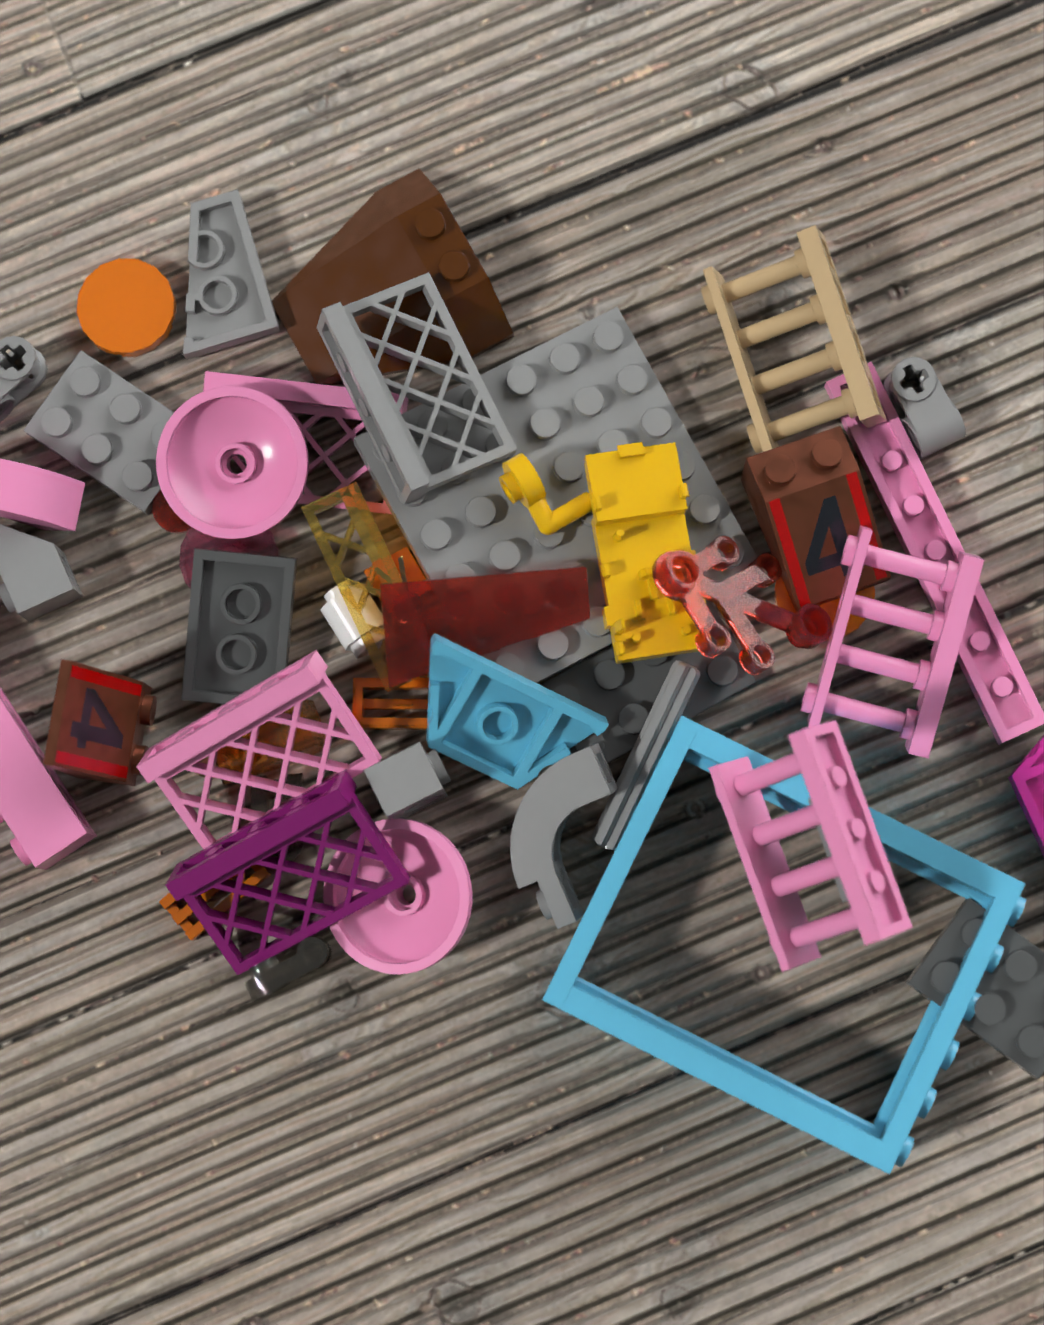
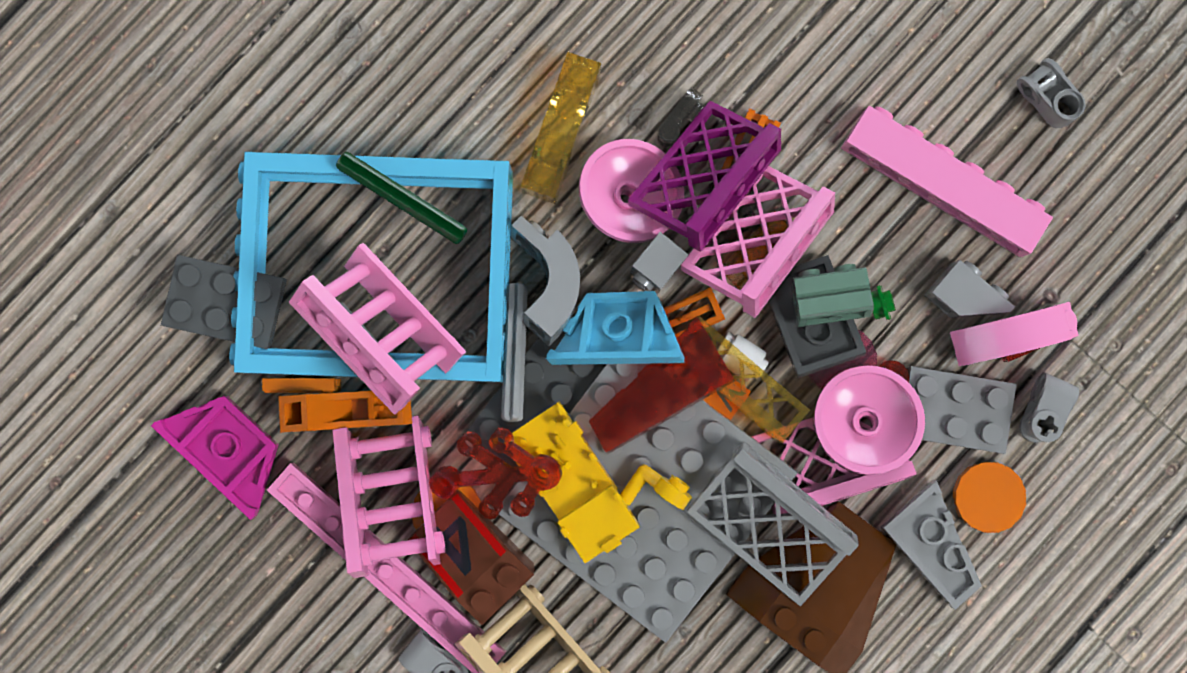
camera: 150 degrees right, 5 degrees up
(98, 724) = (873, 210): copper slope -> none
(143, 607) = (883, 303): none -> green plate
(204, 639) = (832, 295): none -> sand green brick
(450, 1025) = (560, 127): none -> clear yellow arch
(706, 1013) = (401, 197): none -> dark green axle
(918, 784) = (337, 411): none -> orange arch
(949, 835) = (301, 385): none -> orange tile

